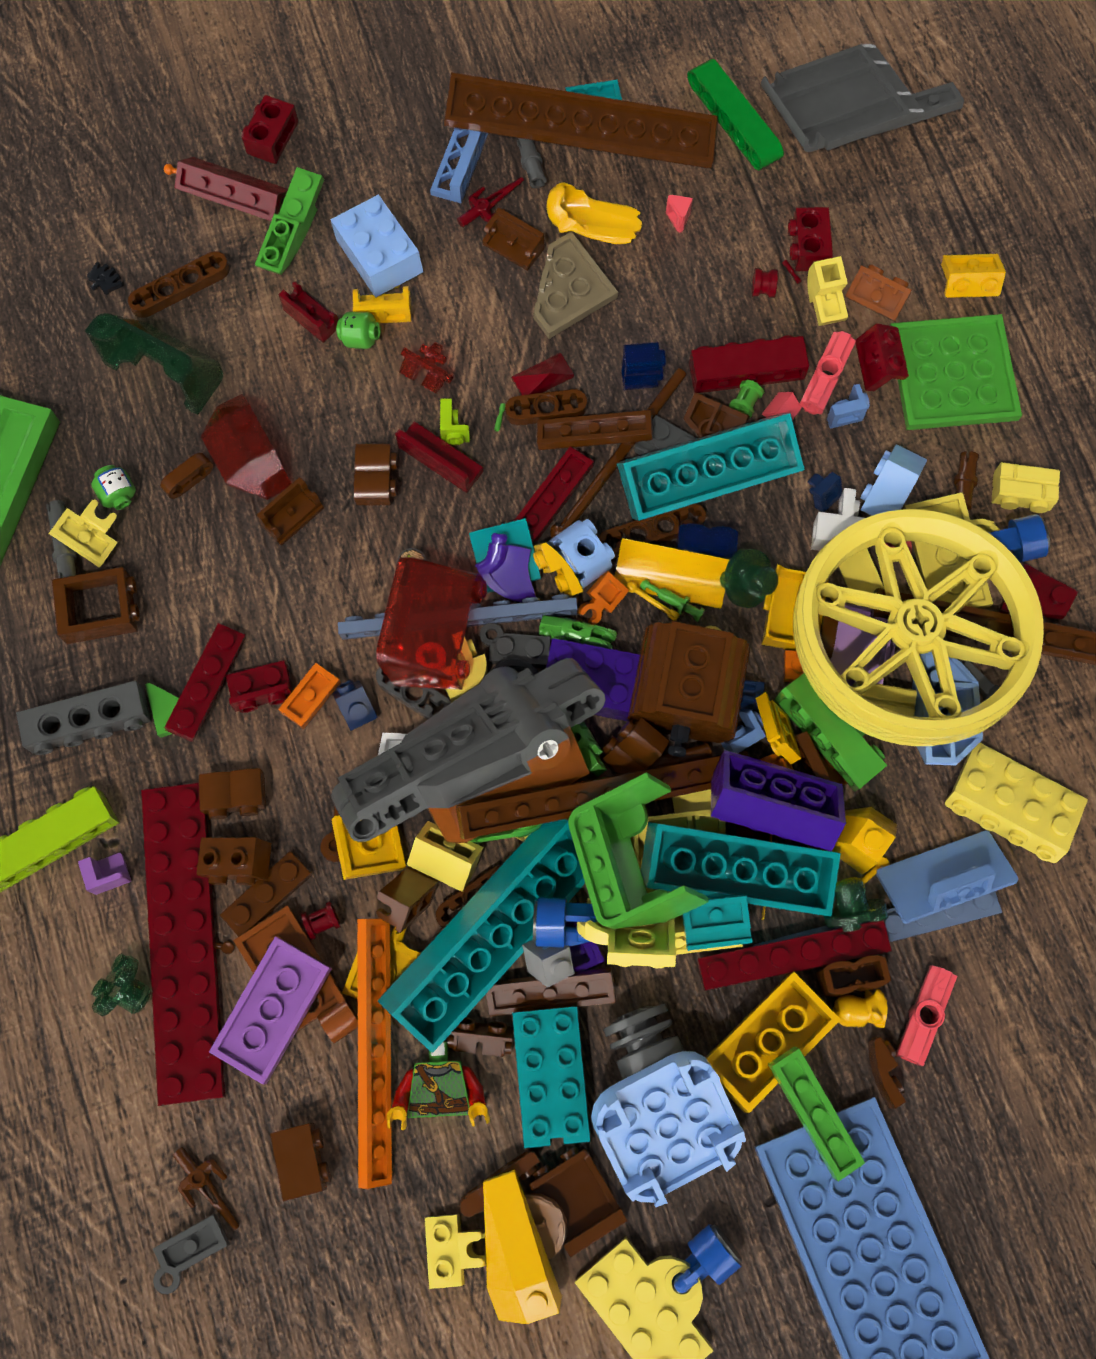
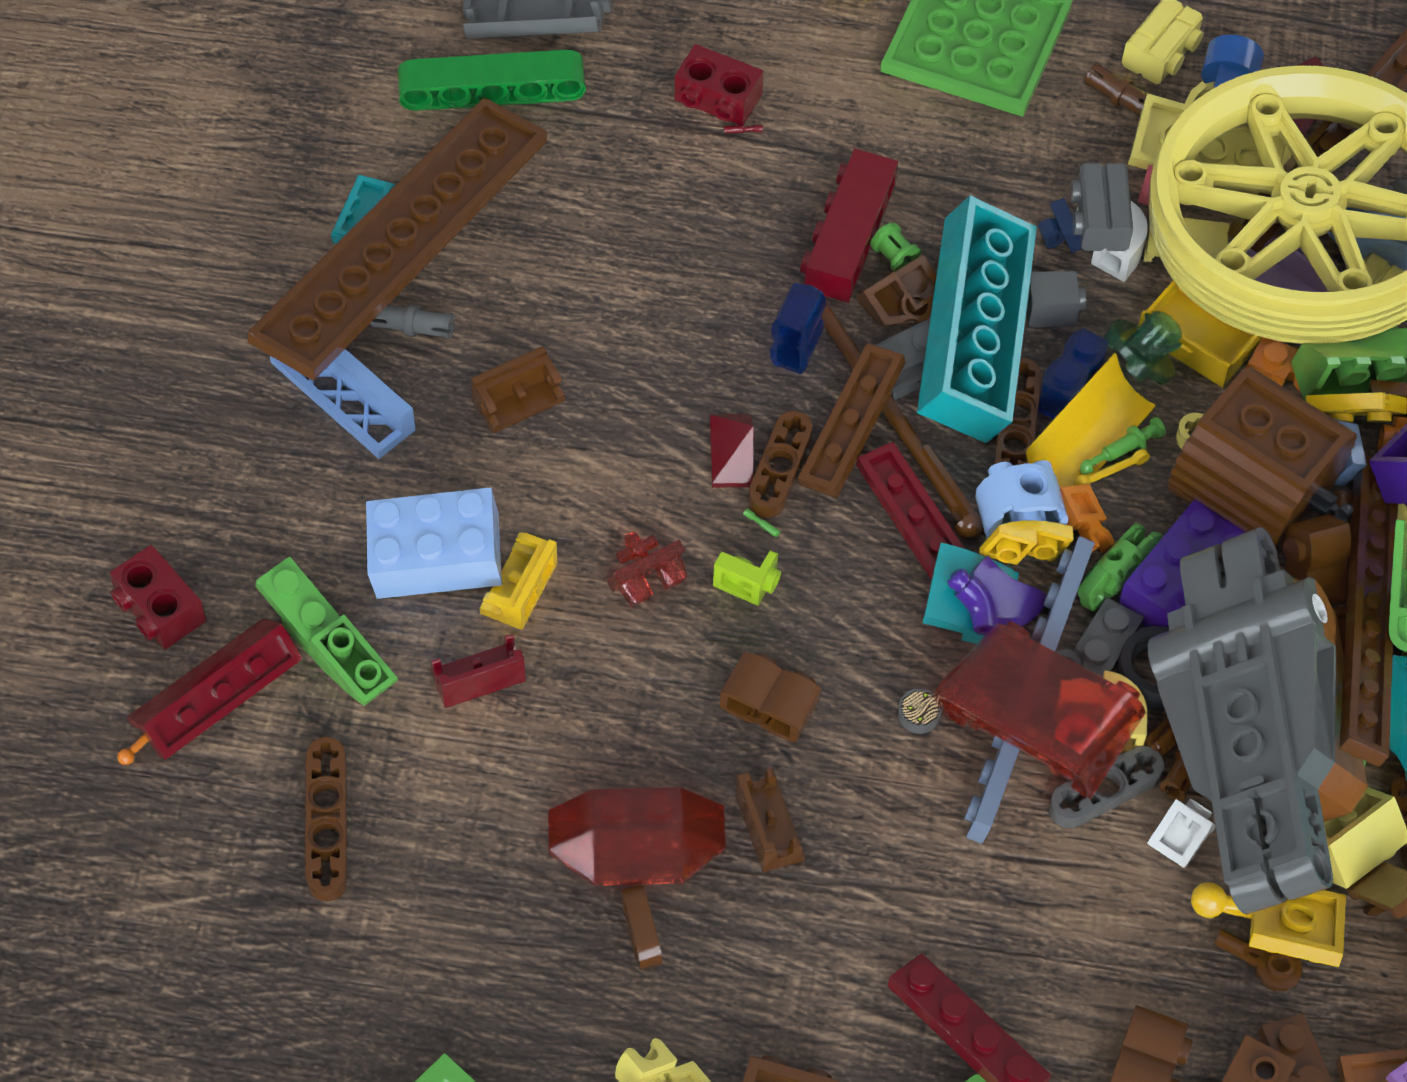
camera: 65 degrees left, 15 degrees down
(104, 278) = (251, 916): black piece -> none
(113, 487) = (609, 1026): bright green head -> none
(128, 340) = (497, 844): clear green windscreen -> none
(259, 686) = (1004, 968): dark red bracket -> none
(309, 695) = (1051, 910): orange plate -> none
(320, 920) = (1370, 1012): dark red bush -> none
(354, 704) = (1088, 859): dark blue bracket -> none
(358, 330) = (544, 622): bright green head -> none
(439, 456) = (784, 612): dark red panel -> none
(482, 206) = (440, 406): dark red piece -> none
(570, 286) = (624, 360): dark tan plate -> none
(594, 219) = (545, 288): yellow hair -> none
(678, 210) = (594, 197): coral slope -> none
(762, 508) = (1054, 299): none -> dark grey brick
(764, 282) = (749, 158): dark red wheel -> none
(783, 403) = (924, 221): coral slope -> none
(821, 384) = (912, 151): coral piece -> none
(825, 287) = (798, 101): light yellow brick -> none
(840, 501) = (1103, 207): none -> dark grey brick
(849, 412) = (969, 146): medium blue bracket -> none
(878, 292) = (831, 56): dark orange bracket -> none
(881, 356) = (920, 92): dark red bracket -> none
(896, 478) = (1095, 139): light blue brick -> none

